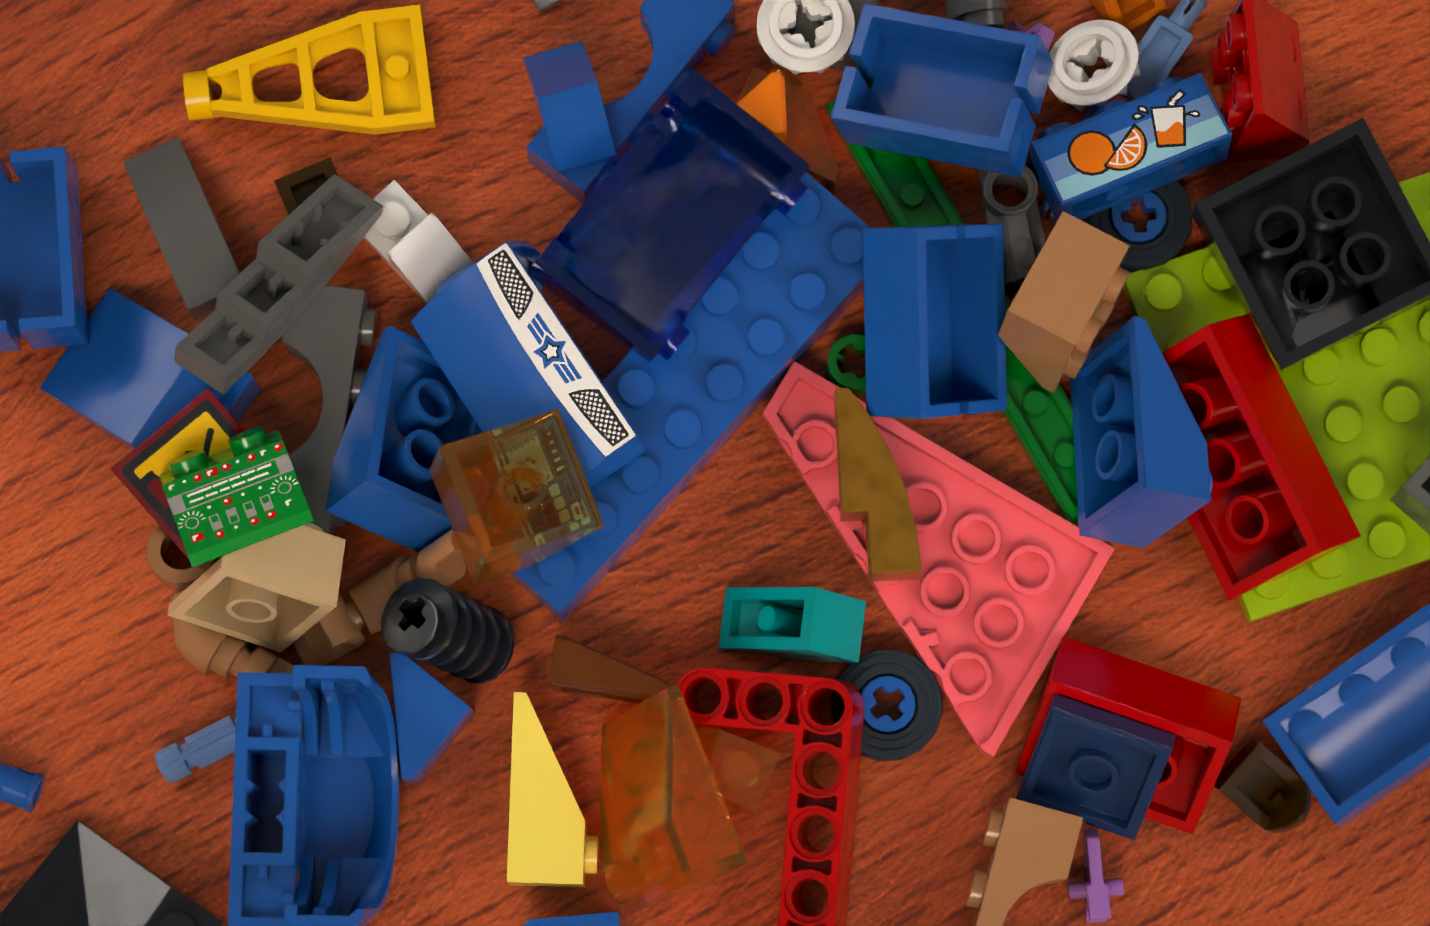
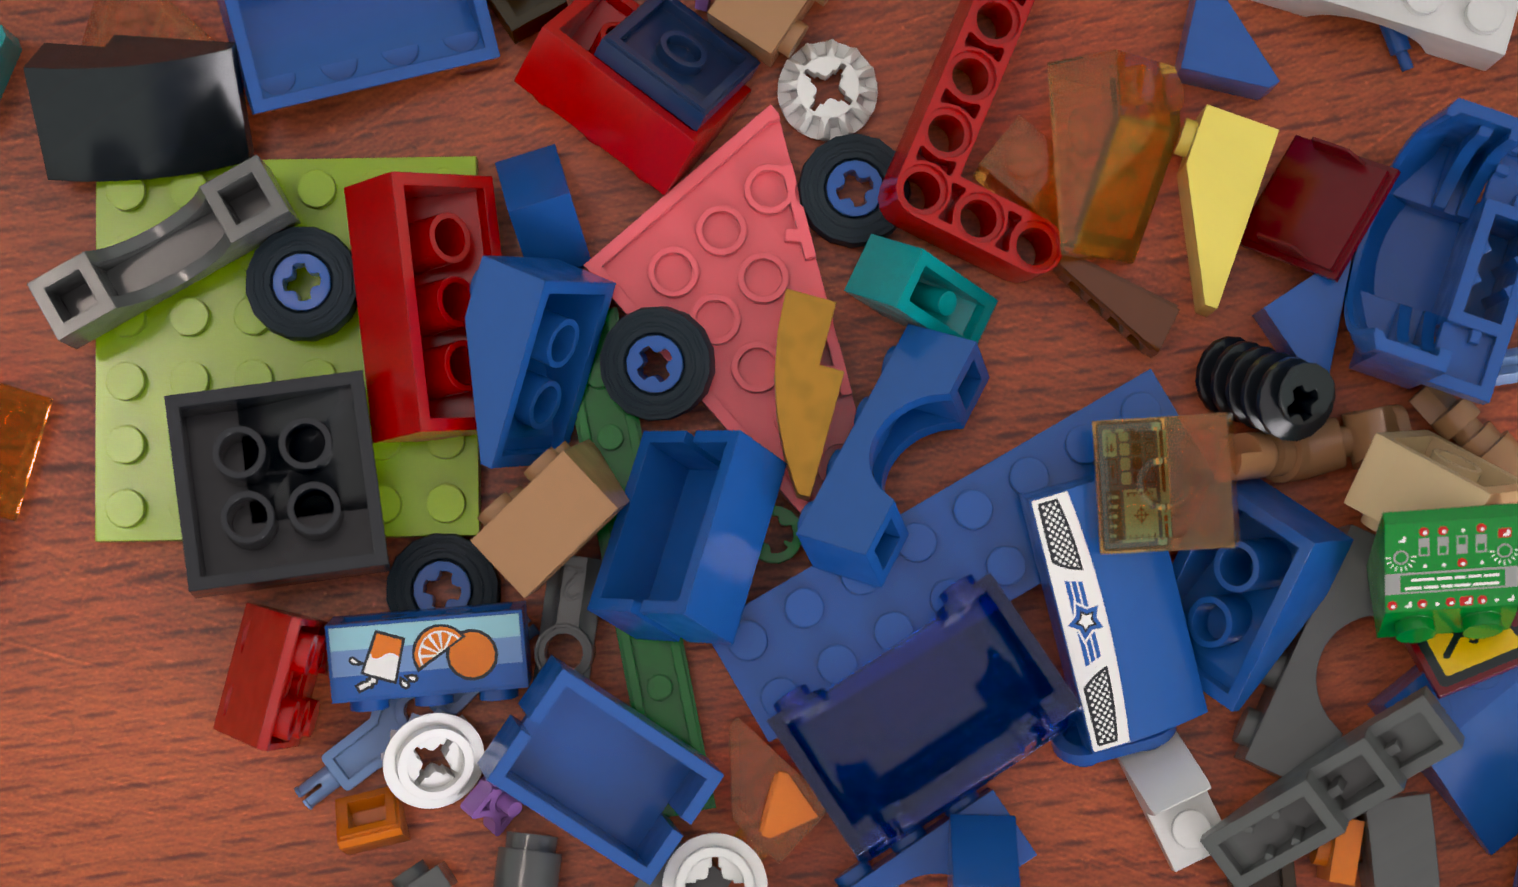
camera: 165 degrees left, 5 degrees up
(248, 232) = (1340, 857): none -> orange plate
(447, 824) = (1318, 206): none -> dark red piece
(765, 529) = (923, 389): none -> blue arch
(917, 807) = (832, 118): none -> white gear
(1019, 506) = (689, 370): none -> black bush
(1172, 593) = (542, 207): none -> blue slope
(1371, 411) = (283, 310): none -> black bush

